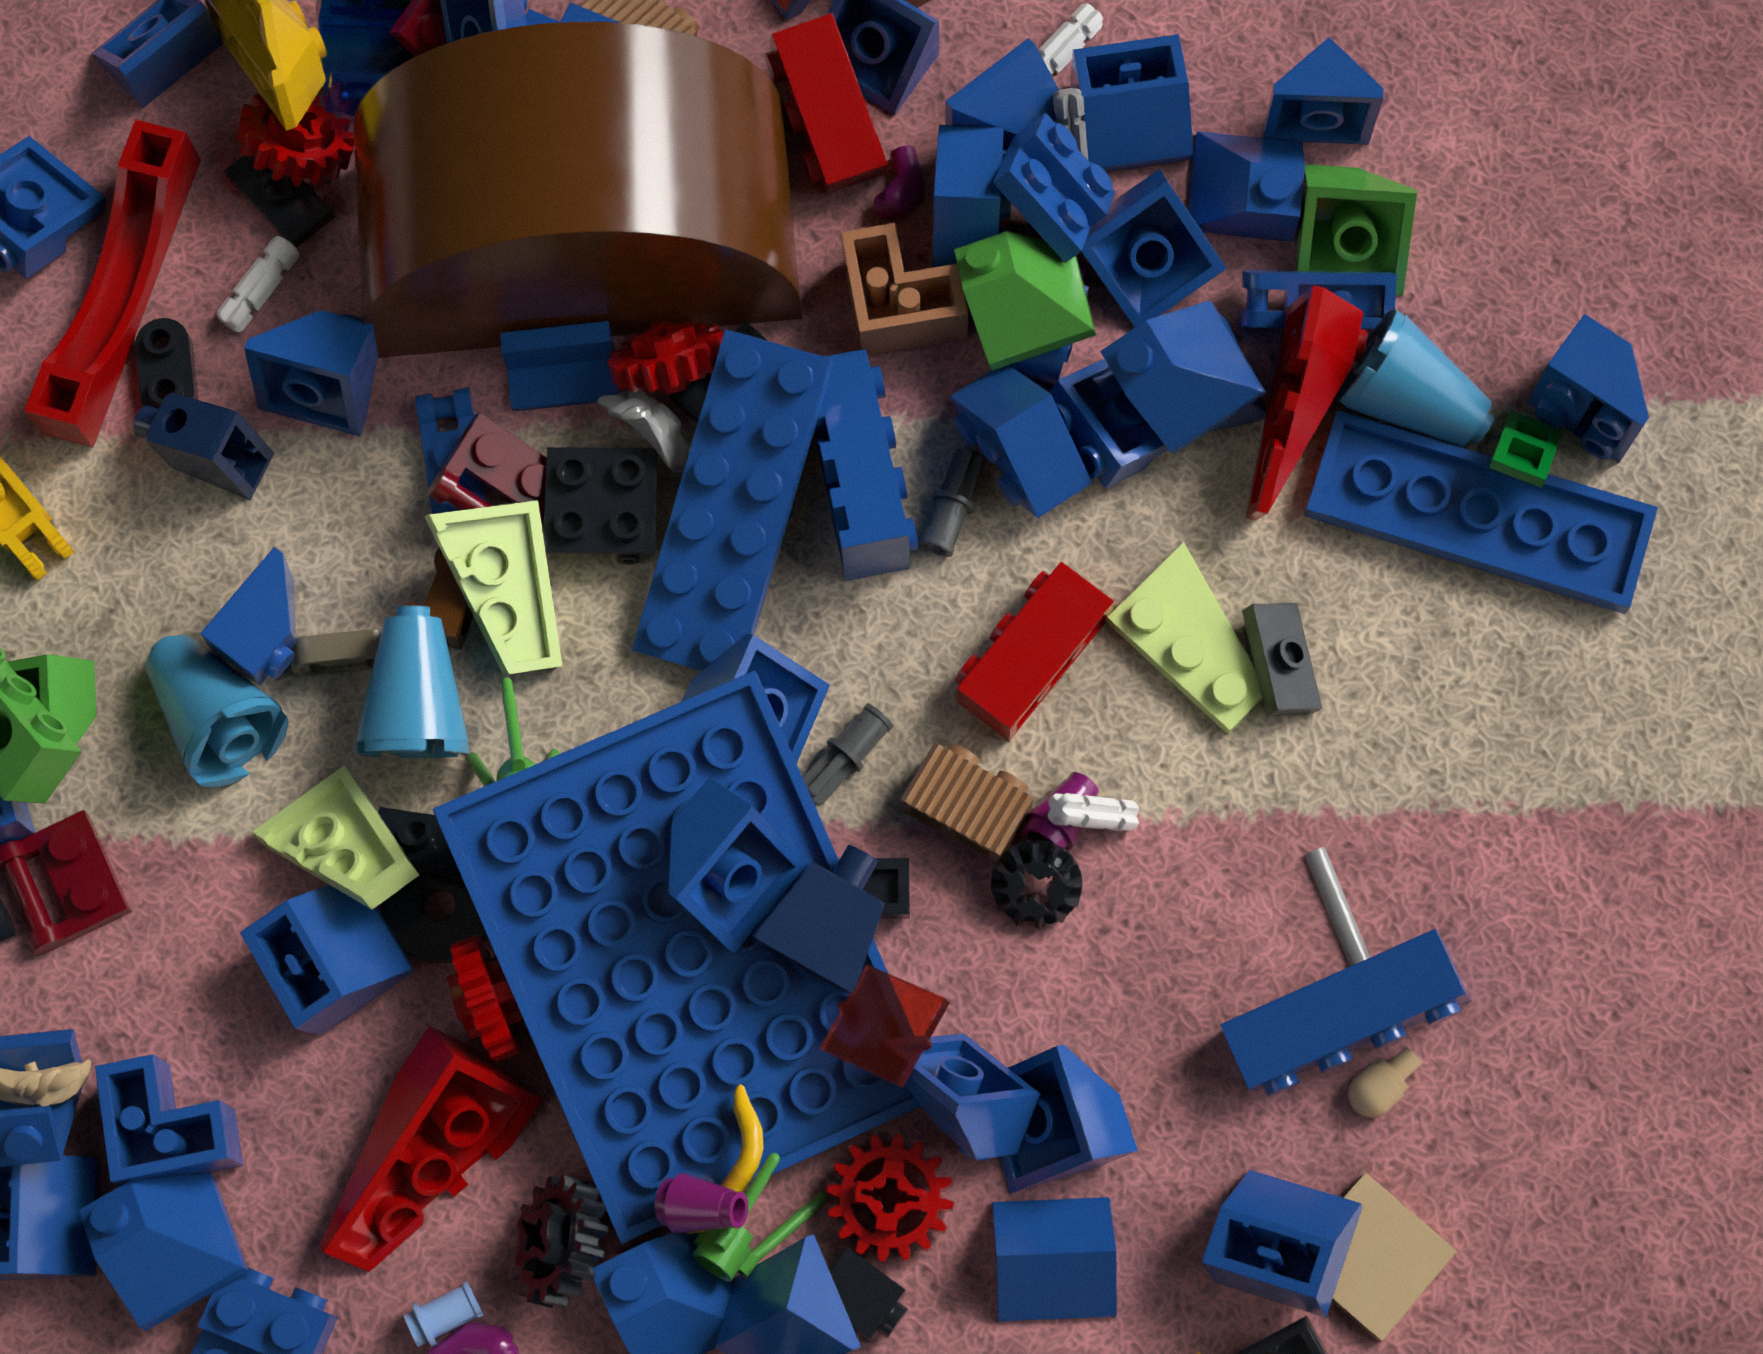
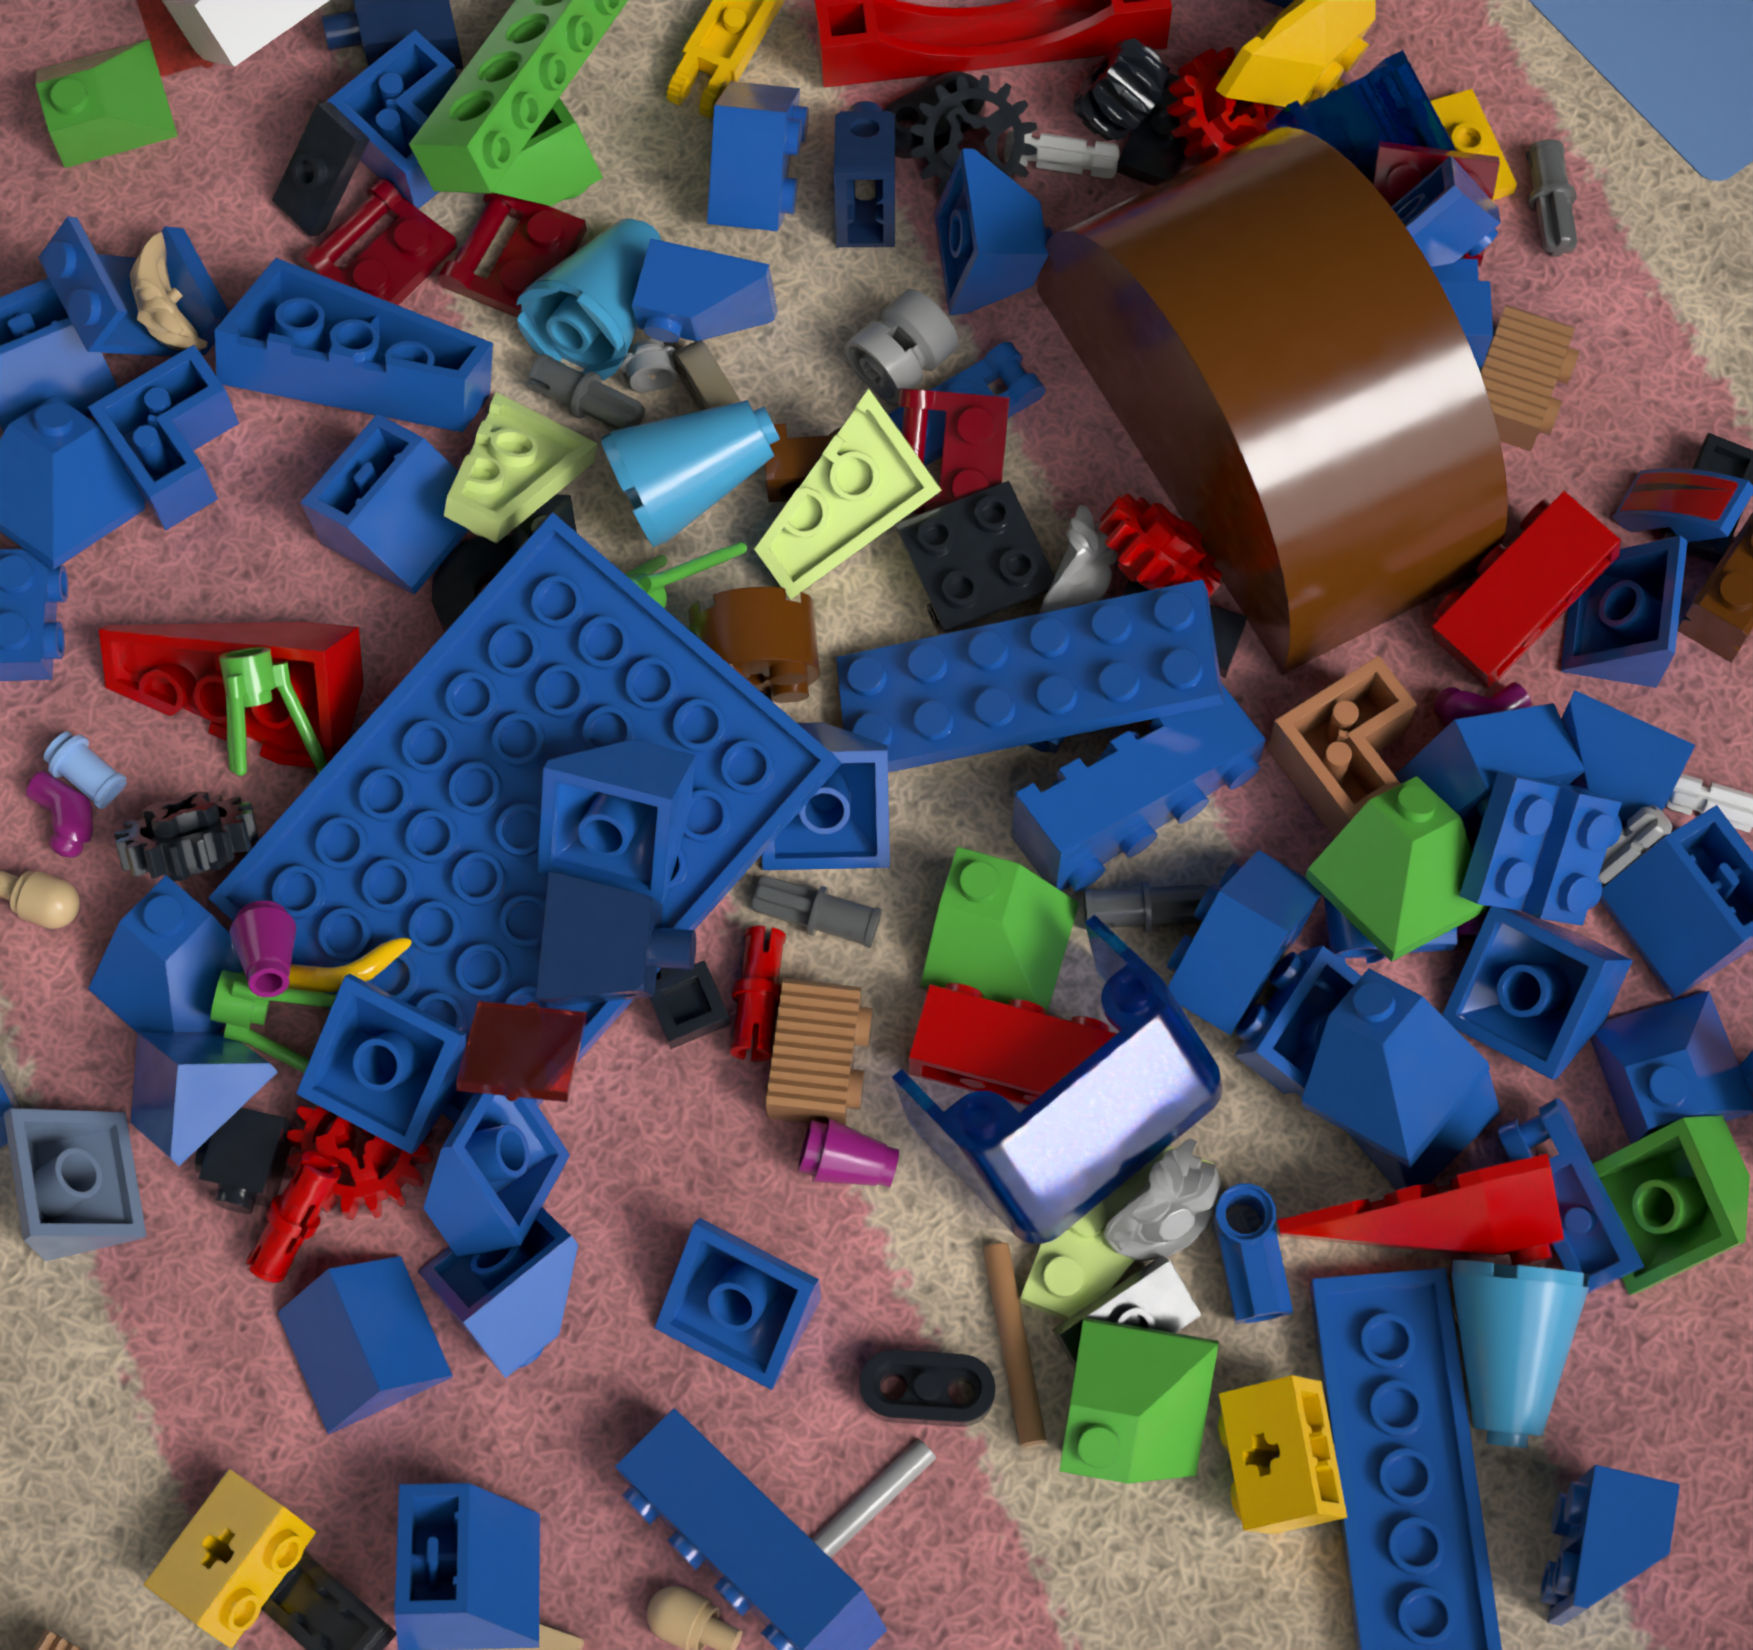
camera: 65 degrees right, 5 degrees down
(136, 519) = (750, 155): none -> blue brick
(138, 757) = (537, 245): none -> dark red plate
(161, 935) = (350, 351): none -> blue wedge
(217, 322) = (996, 123): none -> black gear
(232, 208) = (1121, 89): none -> black gear
(288, 690) = (650, 358): none -> light grey plate
(292, 757) = (584, 393): none -> dark grey axle
(377, 475) = (910, 339): none -> light grey wheel
(445, 1131) = (247, 683): none -> bright green plant
(484, 999) = (392, 656): red gear -> none
(558, 365) = (1108, 456): blue panel -> none
(600, 696) = (763, 638): none -> reddish brown brick
(846, 1144) = (383, 1065): none -> blue slope
(895, 829) = (757, 993): none -> red pin
(927, 624) = (999, 930): none -> bright green slope
(933, 1272) = (293, 1216): none -> red pin
(1041, 860) = (779, 1149): black gear -> none
(1093, 812) = (856, 1182): white axle -> none
(1149, 658) = (1091, 1126): none -> clear blue windscreen
(1149, 946) = (738, 1304): none -> blue slope
(1214, 586) = (1168, 1209): none -> light grey hat
(1261, 751) = (1014, 1344): none -> medium nougat bar
(1271, 830) = (927, 1383): none -> black plate
(1273, 546) = (1252, 1260): none -> blue piece
(1351, 679) = (1137, 1403): none -> bright green slope
(1411, 570) = (1289, 1421): none -> yellow brick
(1525, 449) = (1497, 1495): green slope -> none

